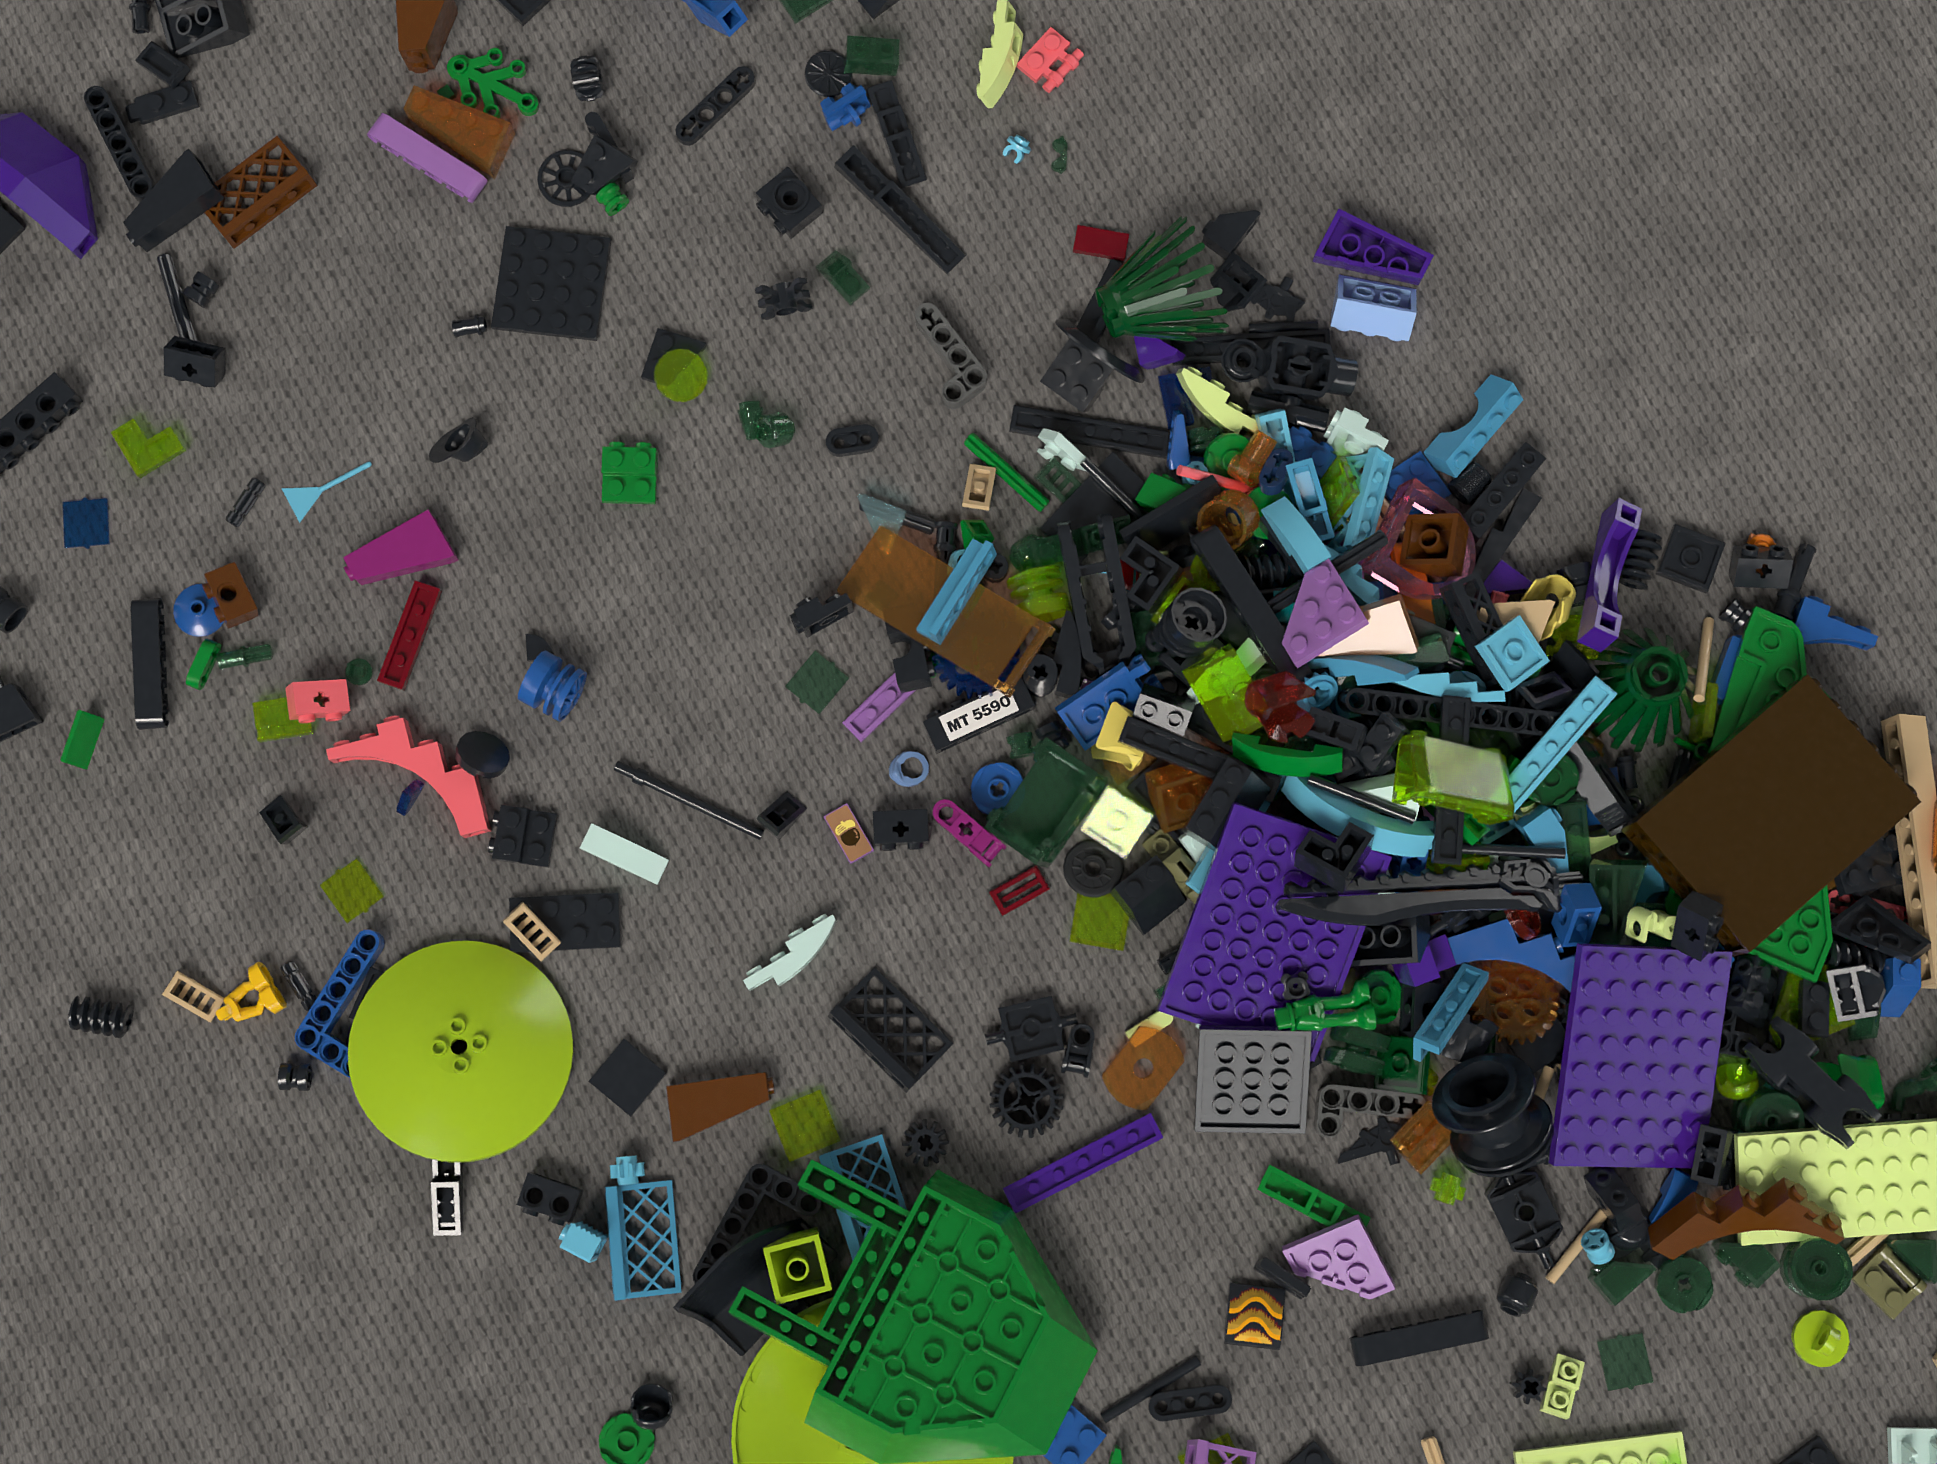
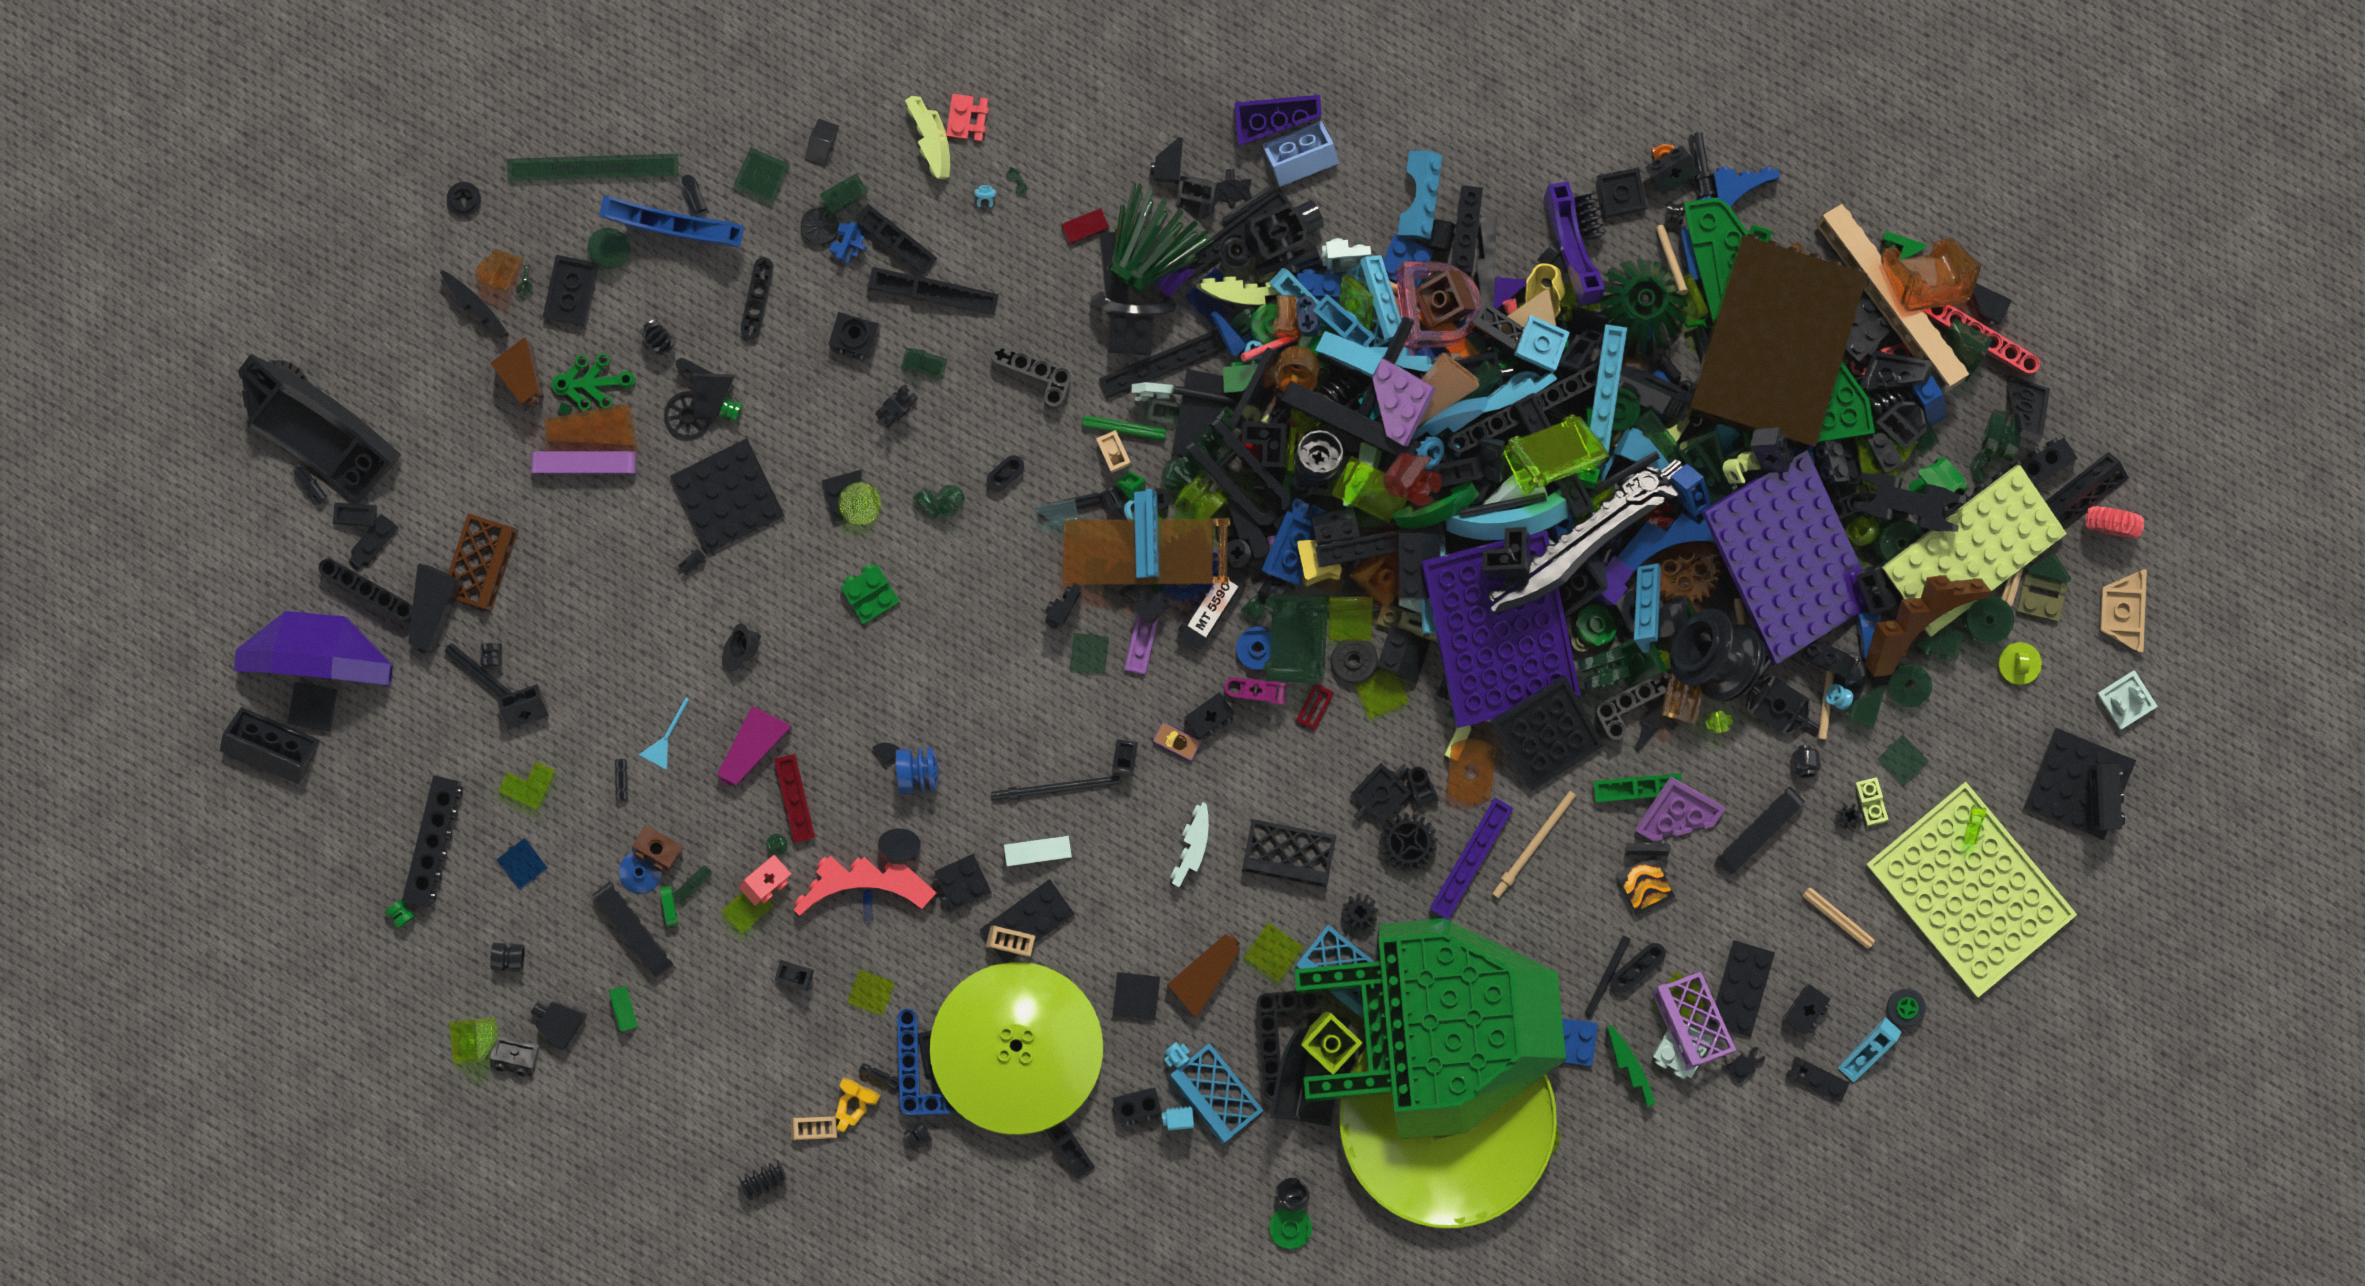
camera: 30 degrees left, 5 degrees up
(895, 769) = (1181, 680): medium blue piece -> none
(1109, 1211) = (1509, 878): none -> tan bar
(1301, 991) = (1541, 658): black plate -> none
(1310, 1015) = (1558, 667): green piece -> none

